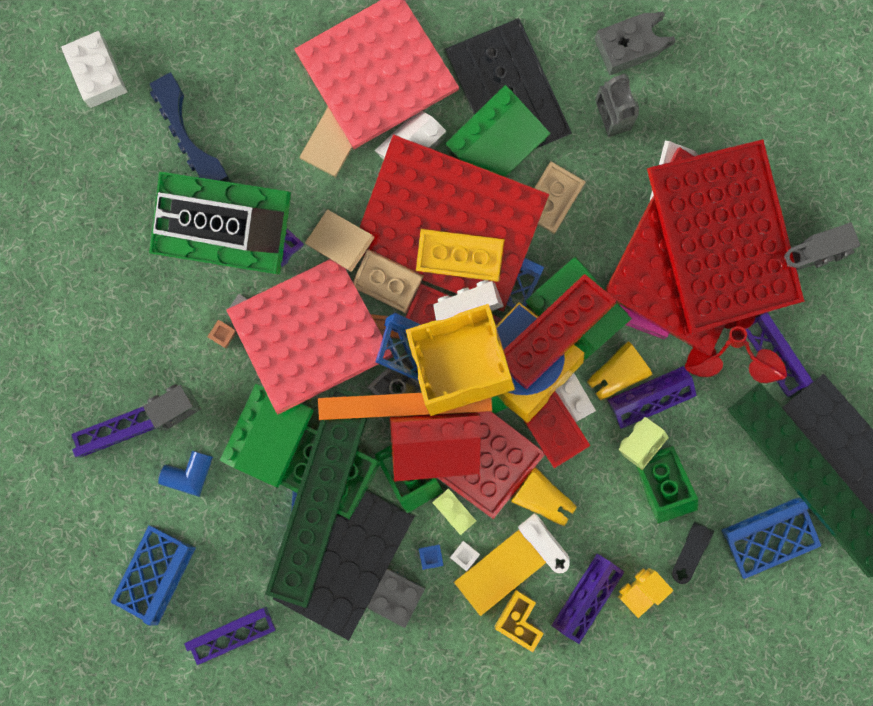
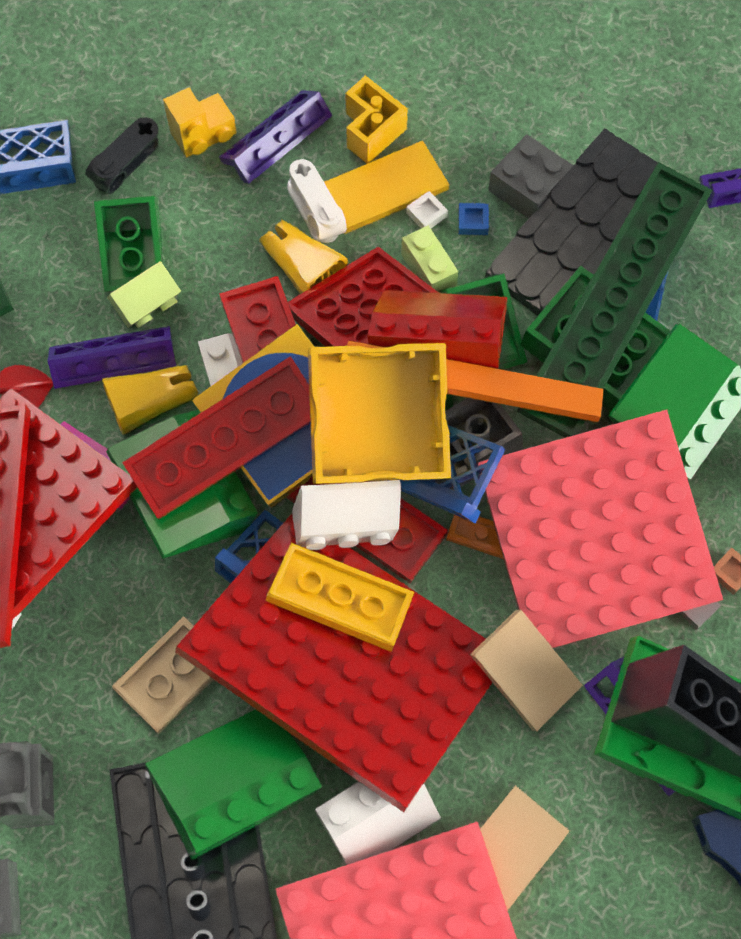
camera: 175 degrees left, 15 degrees down
(387, 281) = (461, 594): tan tile -> none

